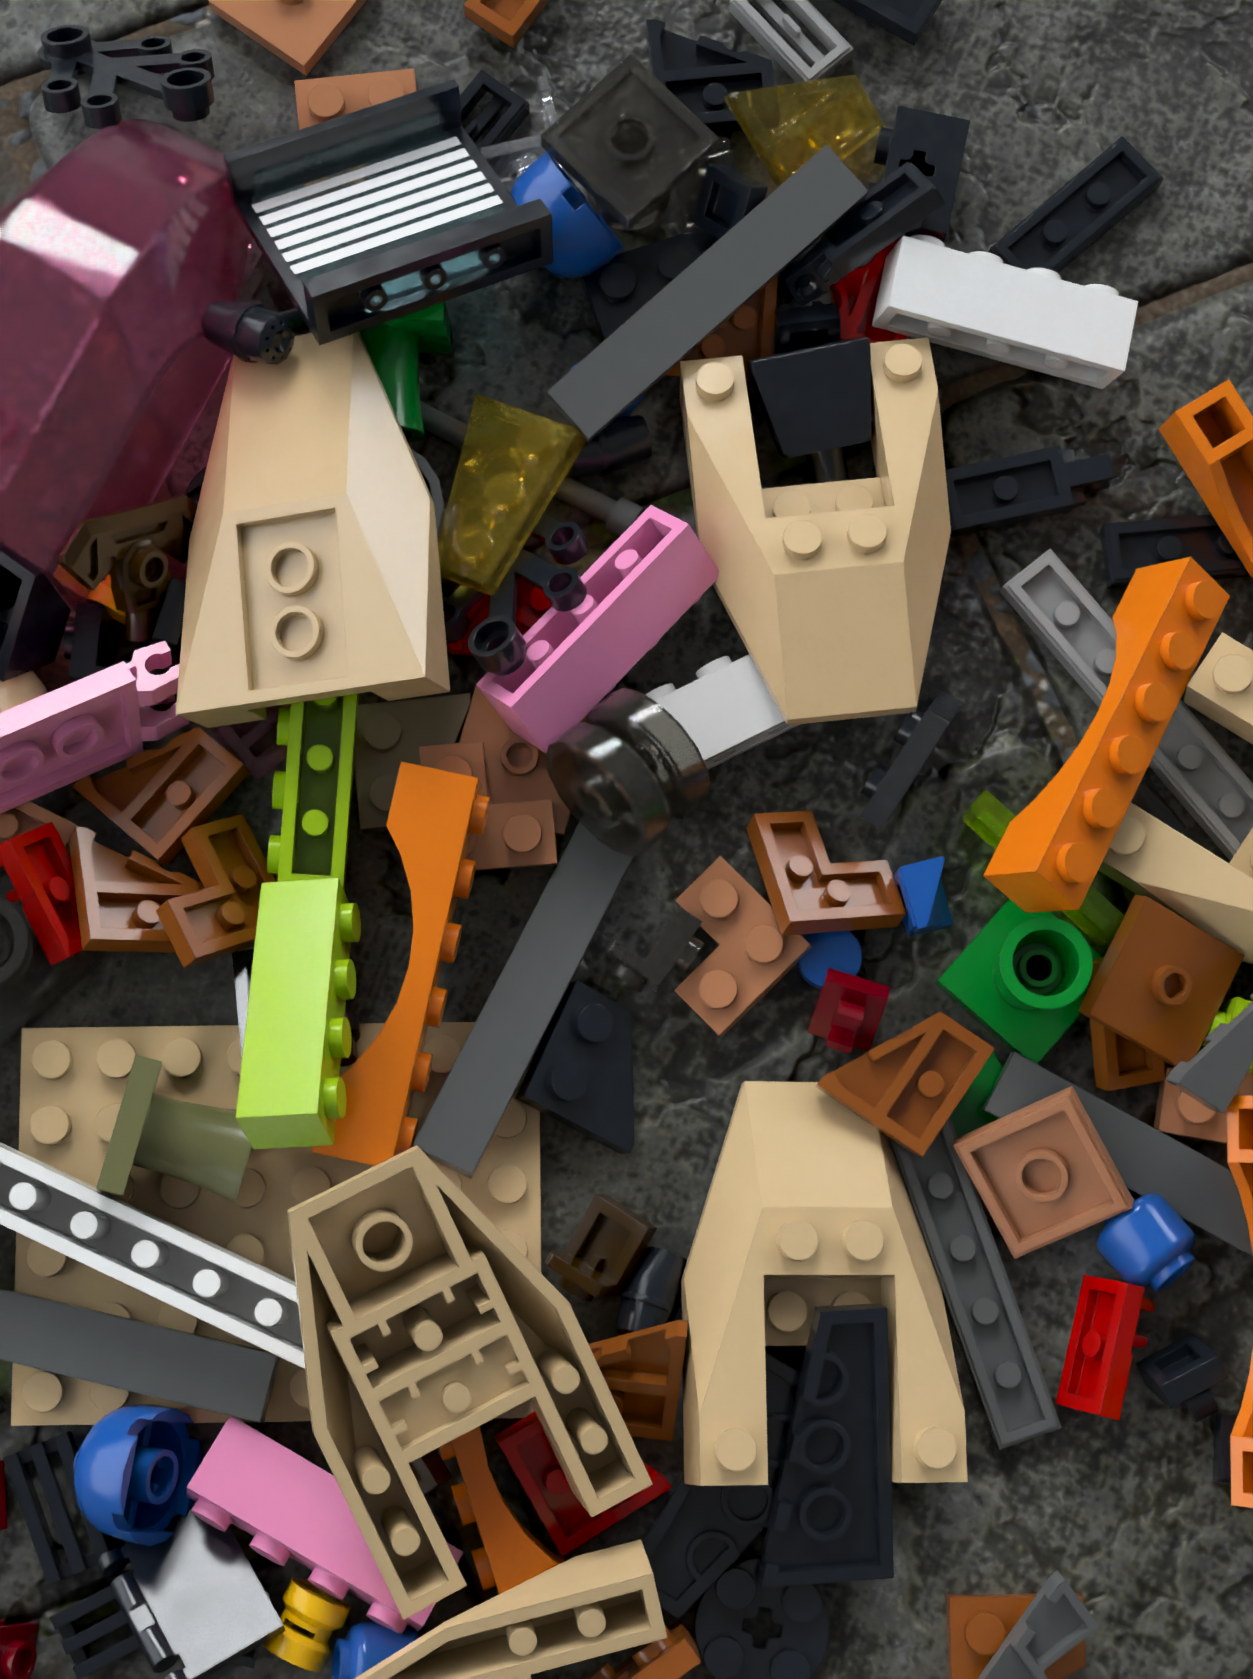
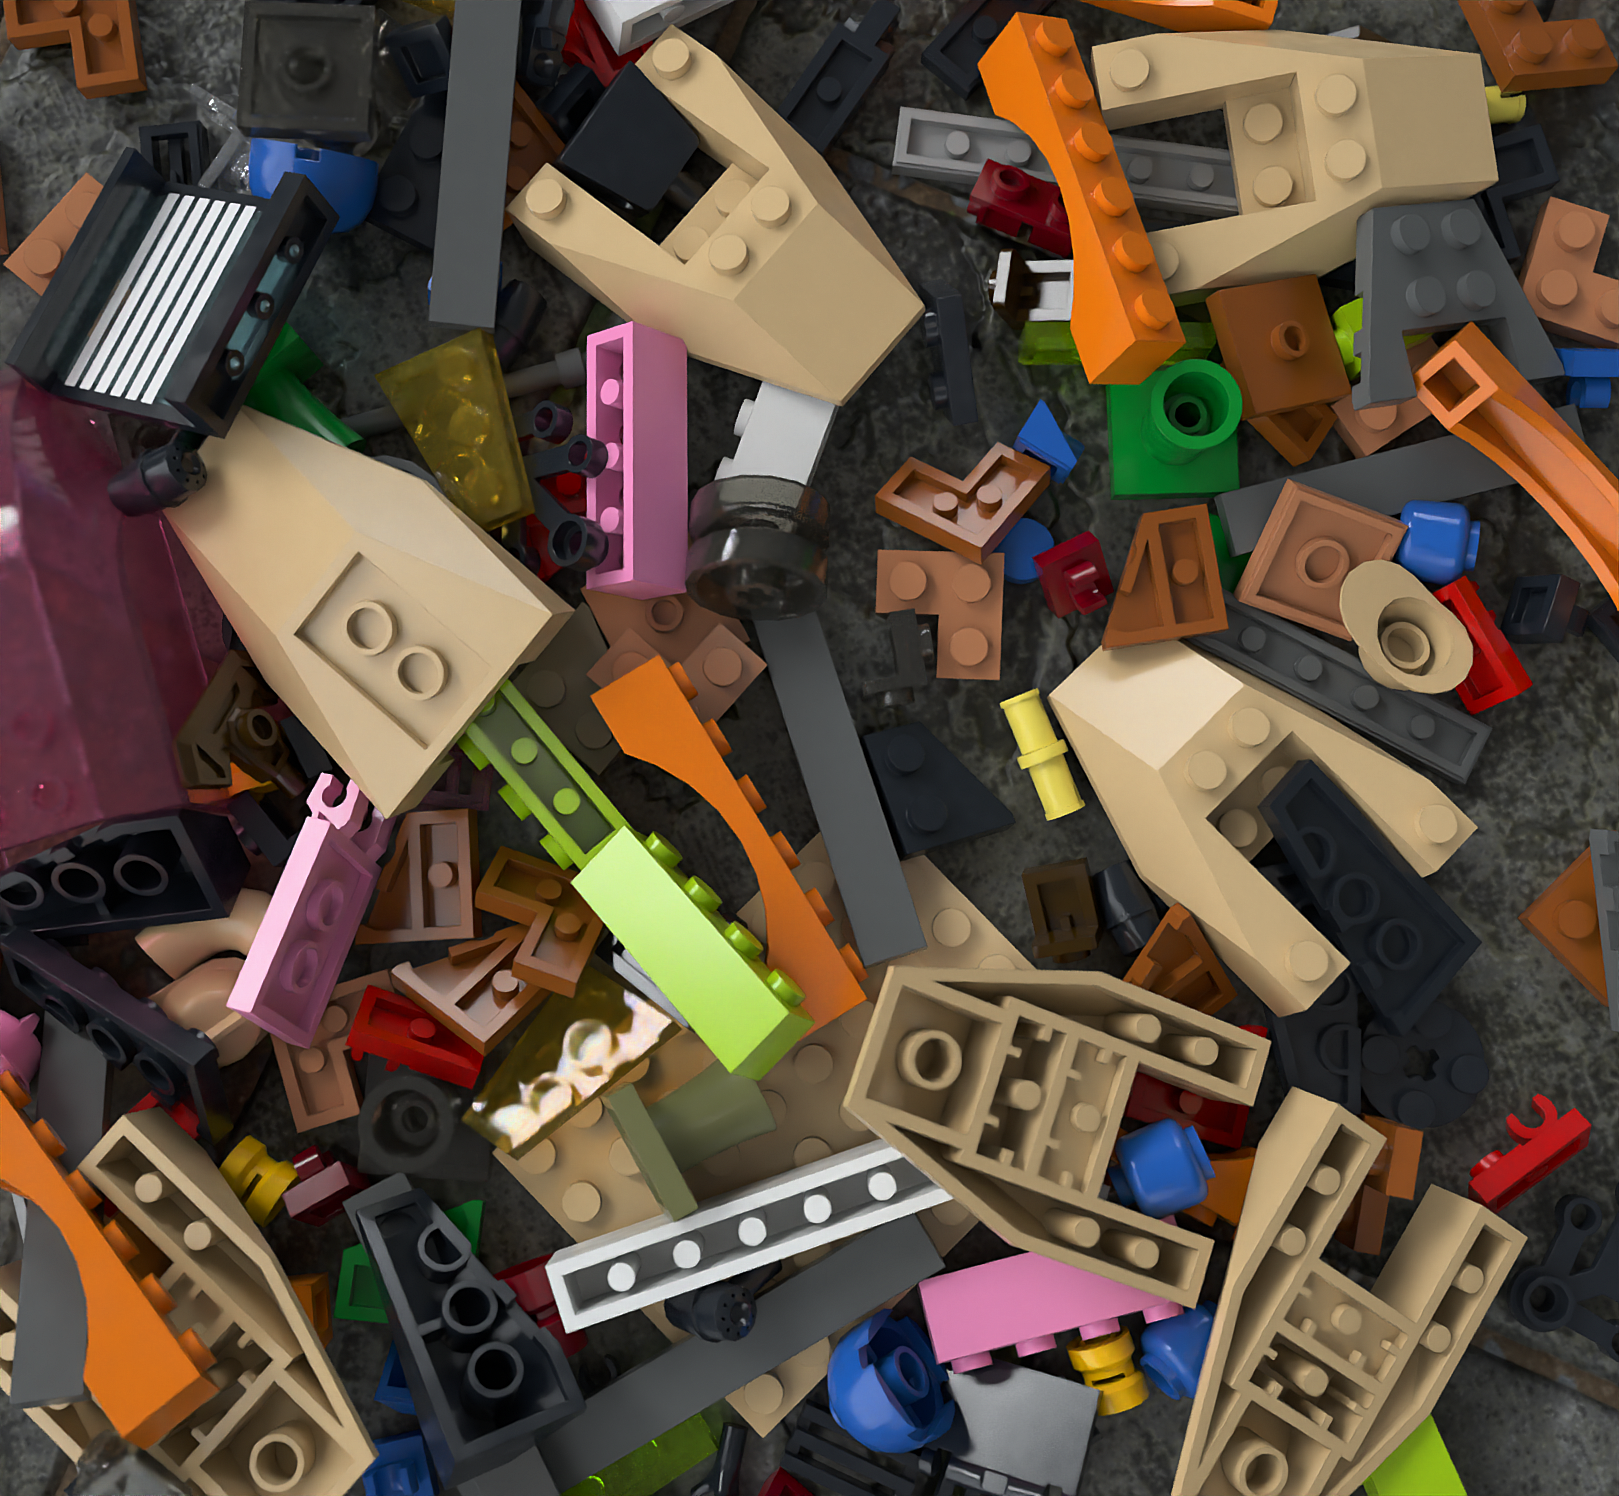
camera: 45 degrees left, 5 degrees up
(72, 1294) = (721, 1308): none -> black piece
(136, 1009) = (566, 1062): none -> clear yellow wing
(480, 1497) = (1161, 1169): none -> blue head
(698, 1121) = (1042, 754): none -> light yellow pin
(1013, 767) = (1031, 290): none -> dark brown bracket
(1056, 1282) = (1403, 630): none -> tan piece
(1067, 693) = (1009, 196): none -> dark red hinge

